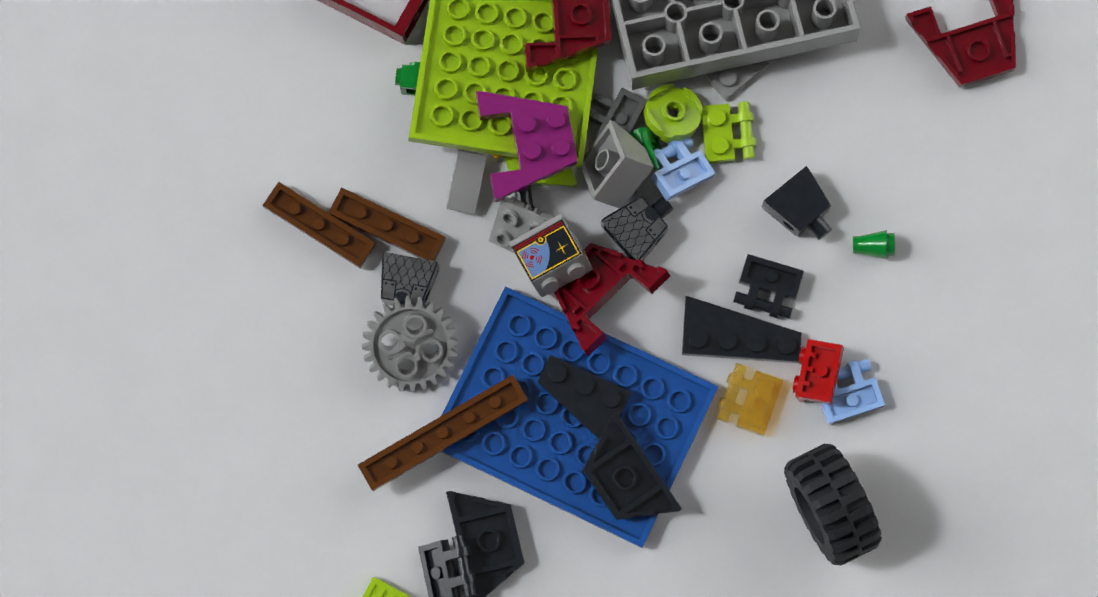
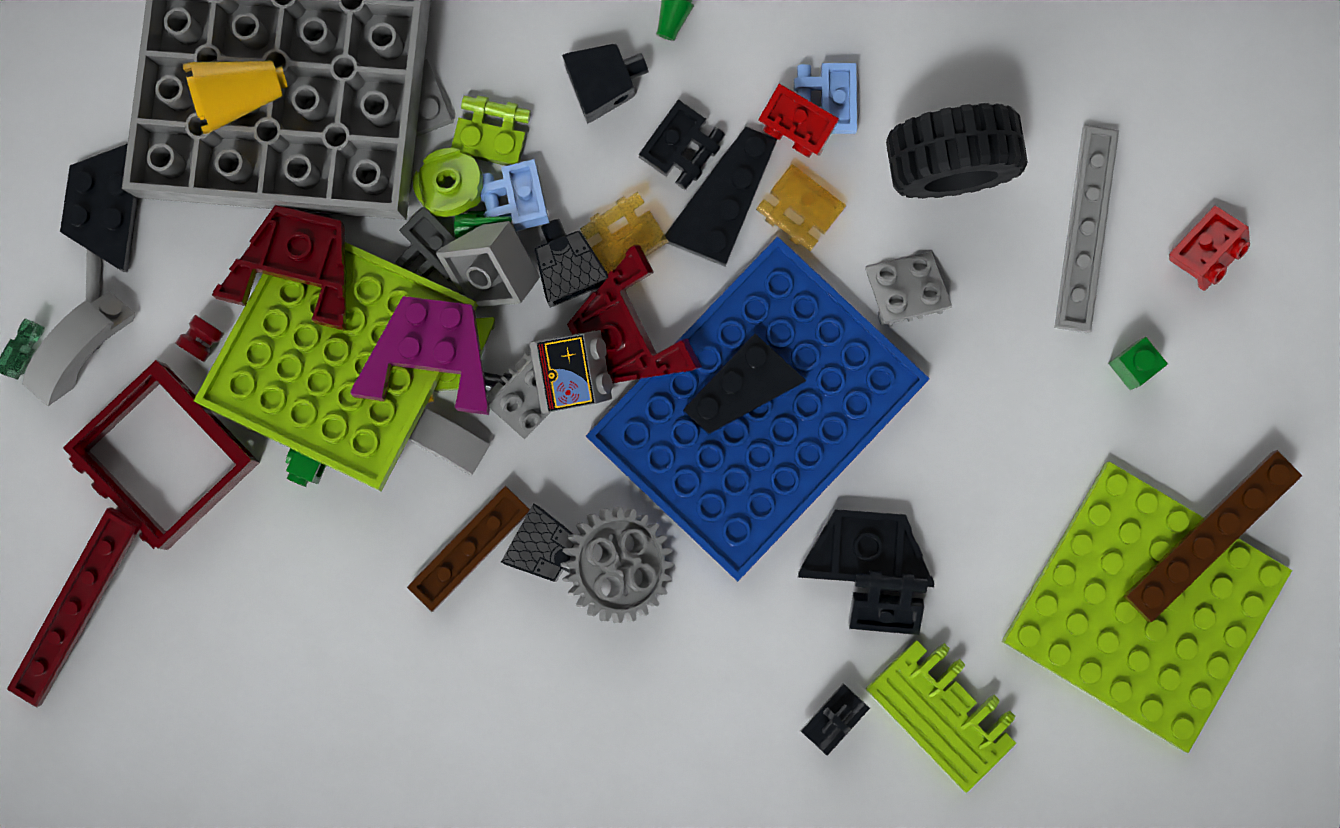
camera: 75 degrees left, 5 degrees up
(319, 225) = (441, 627): reddish brown plate -> none
(341, 556) = (835, 719): none -> black hips
(442, 433) = (733, 559): reddish brown plate -> none
(626, 475) = (847, 369): black wing -> none
(683, 277) = (640, 231): none -> clear yellow plate
(712, 507) = (908, 288): none -> light grey hinge

